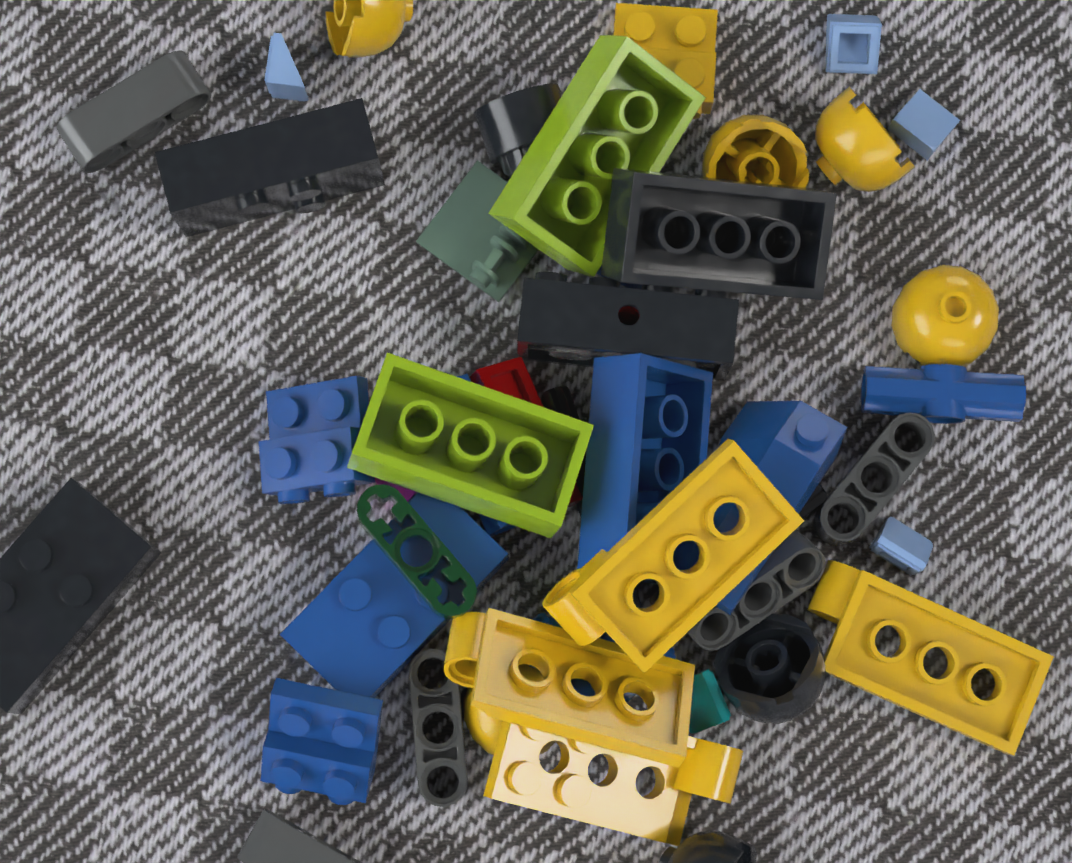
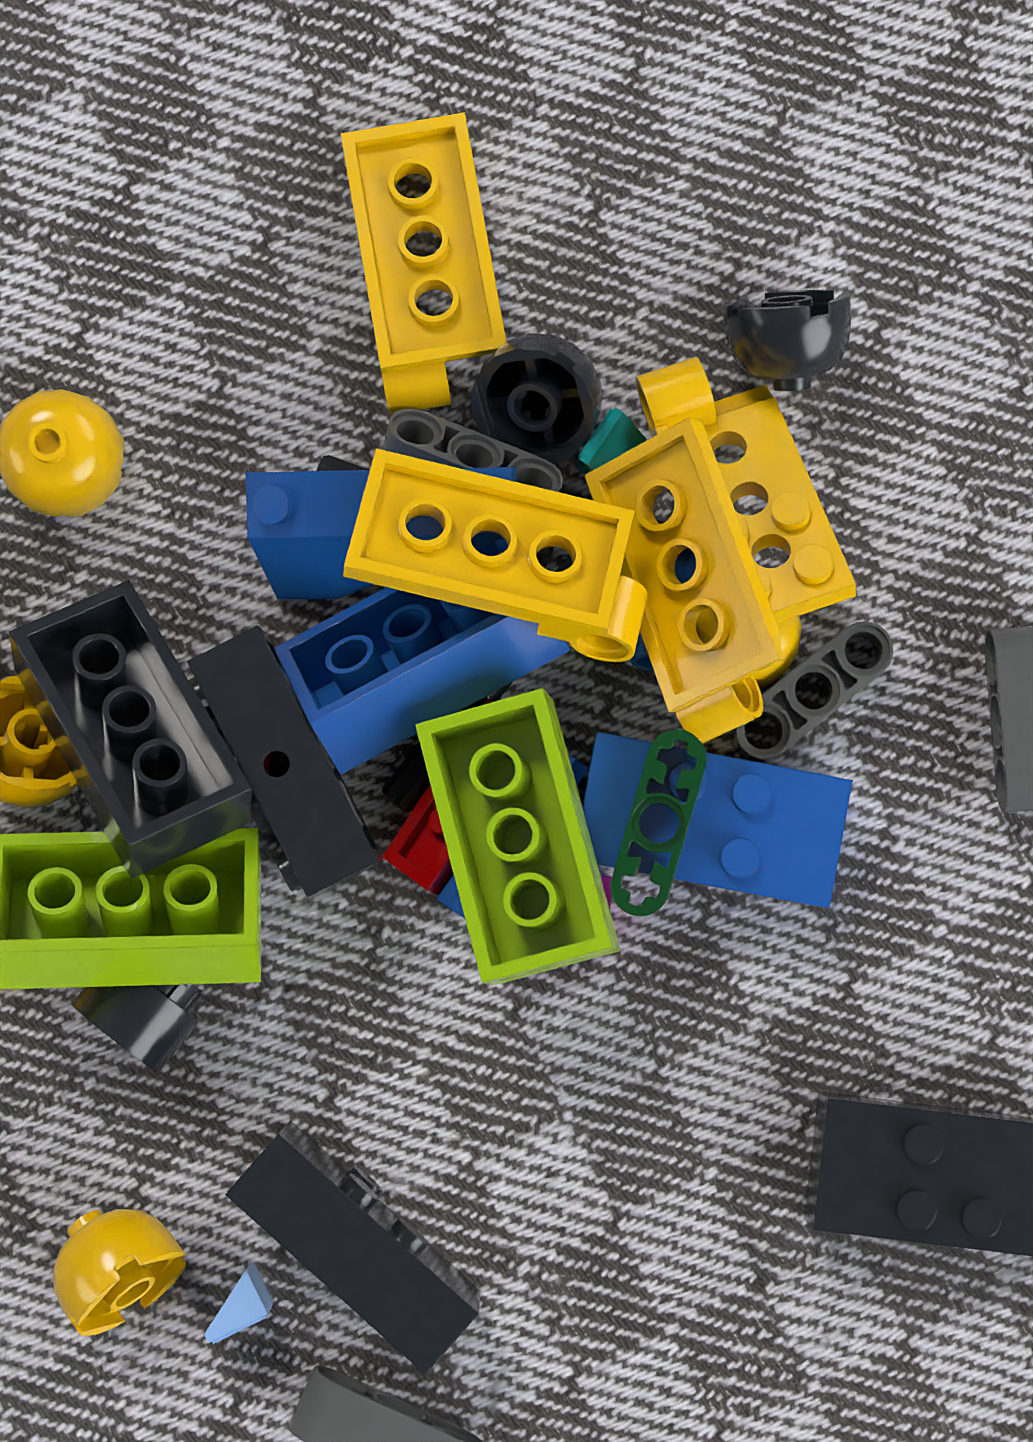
camera: 125 degrees left, 5 degrees up
(313, 439) = (607, 1010): blue plate -> none
(321, 741) = (905, 796): blue plate -> none
(474, 240) = (294, 992): sand green hinge -> none
(894, 465) = (253, 400): dark grey beam -> none
(902, 546) = (324, 350): light blue slope -> none
(943, 393) = (142, 406): blue piece -> none

